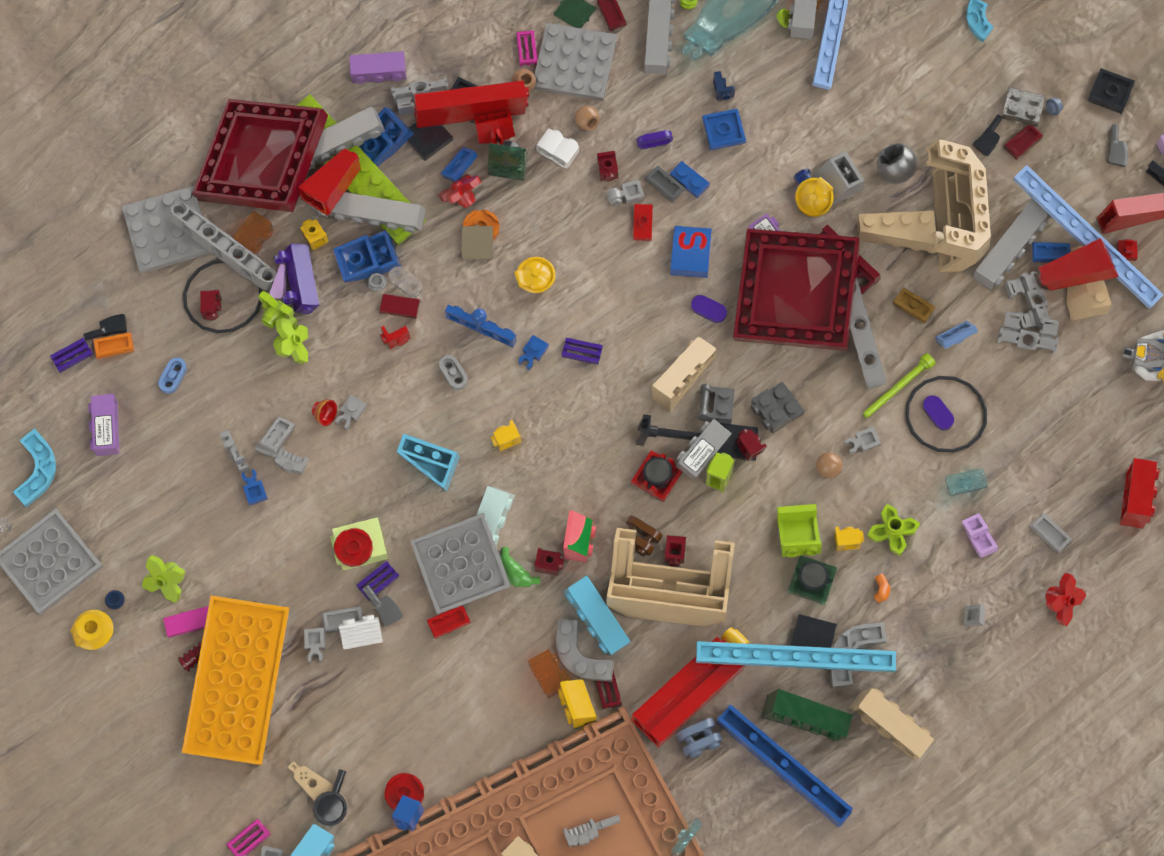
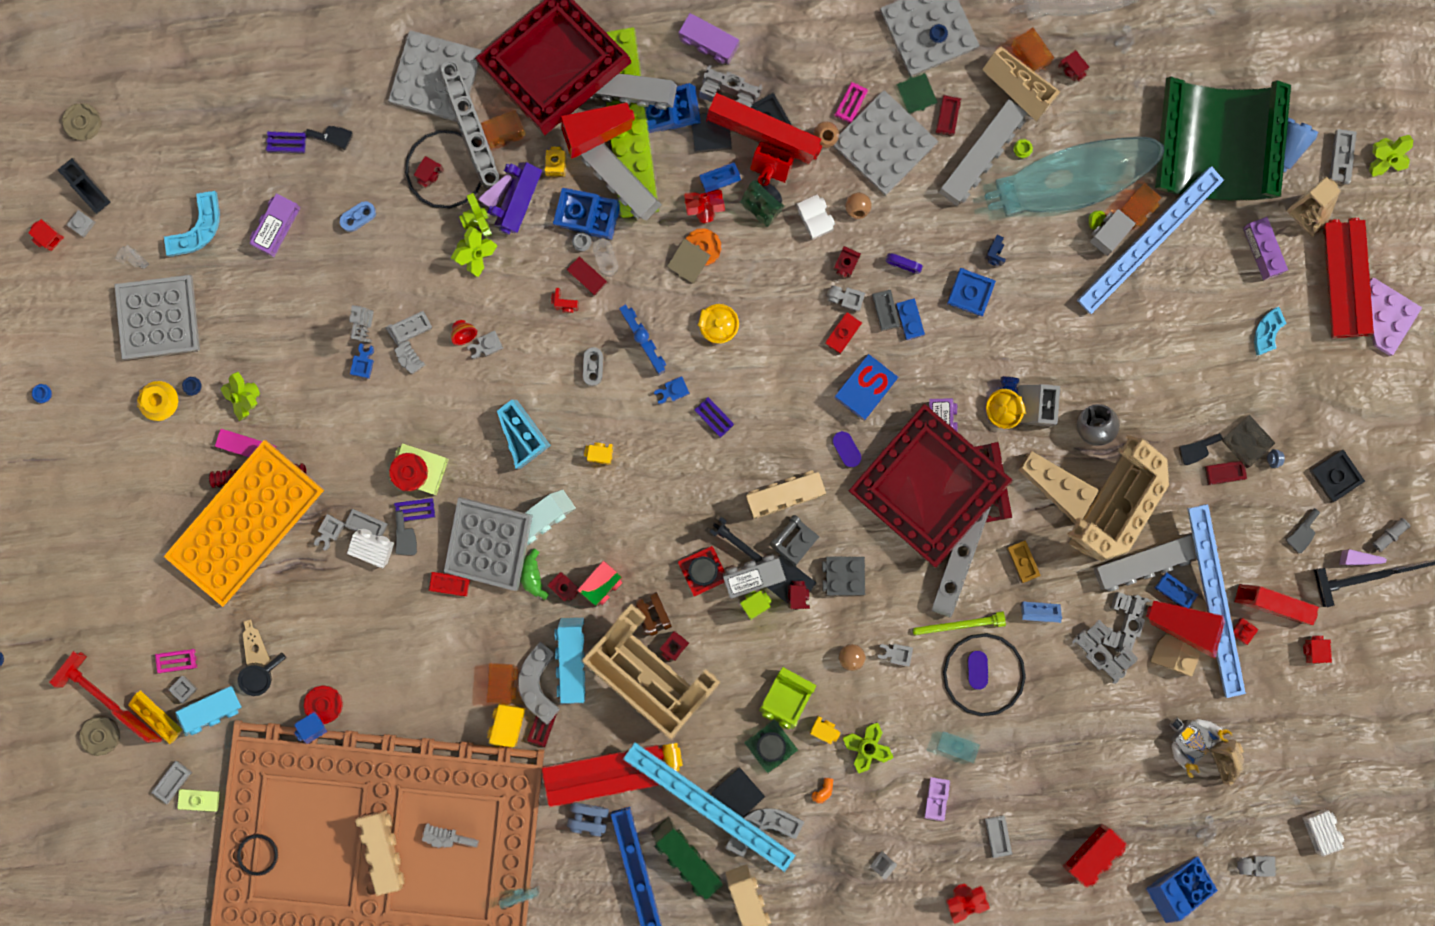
camera: 30 degrees right, 15 degrees up
(113, 345) = (326, 156): orange tile -> none

